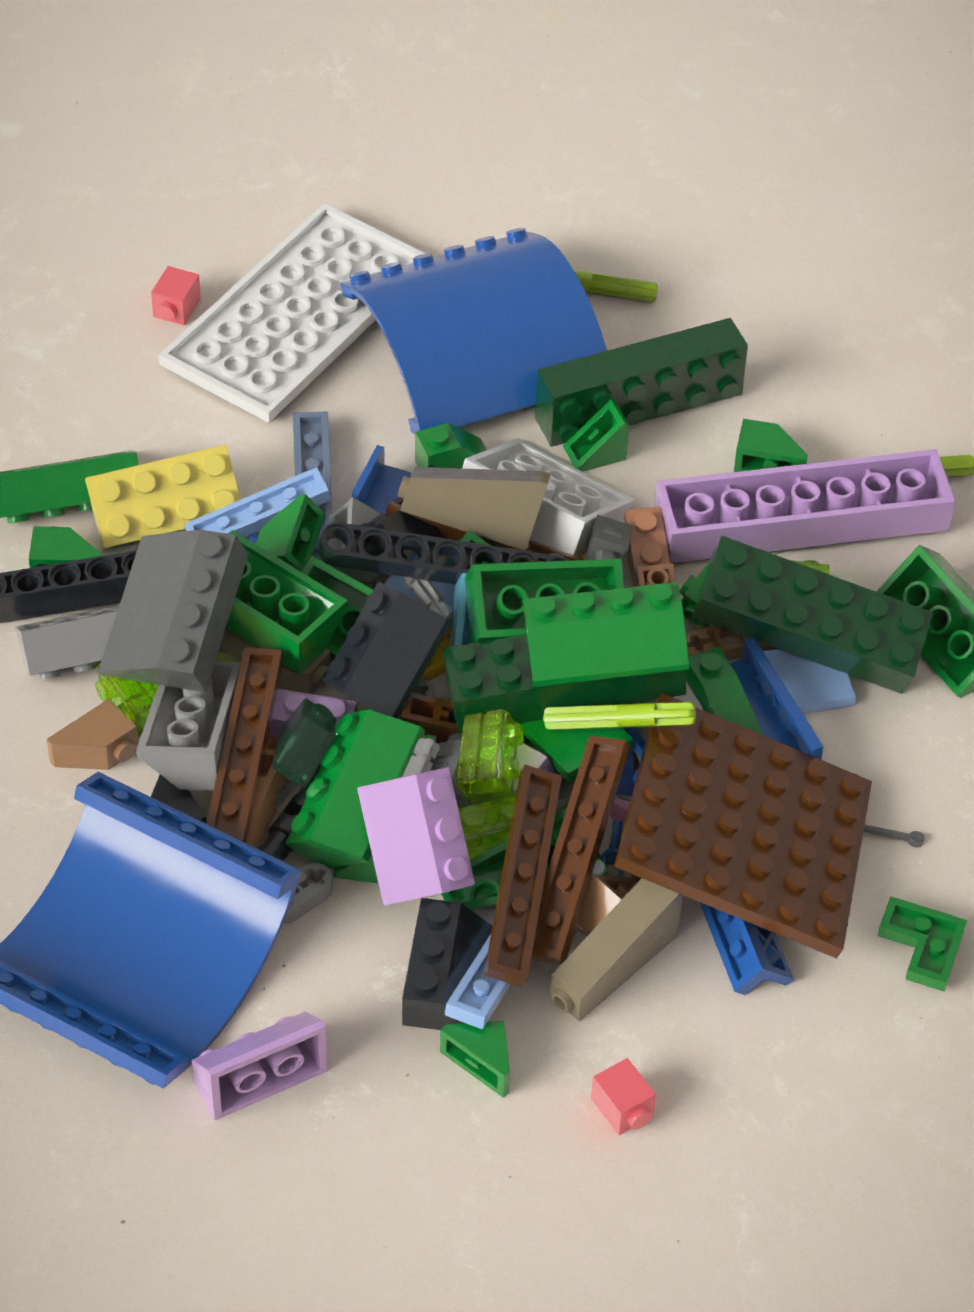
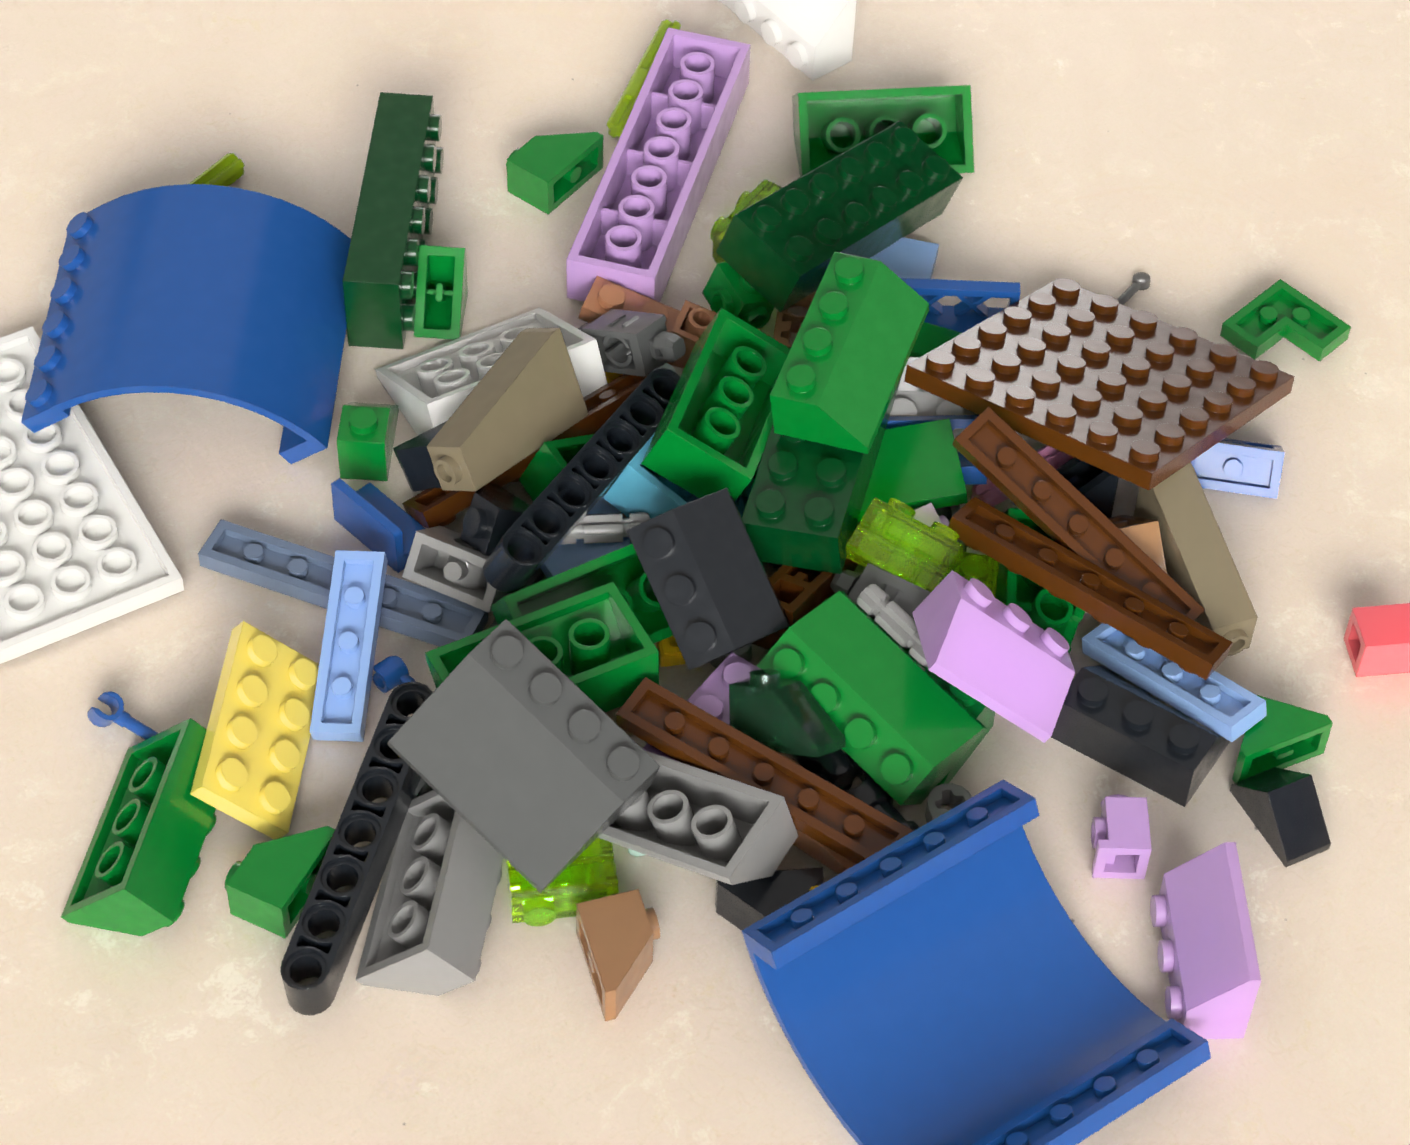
camera: 65 degrees left, 0 degrees up
(148, 435) = (118, 716): none -> blue hand
(293, 532) = (422, 622): green slope -> none
(339, 986) = (1121, 838): none -> lavender brick
(421, 1082) = (1285, 812): none -> black slope
(619, 716) = (930, 408): lime axle -> none

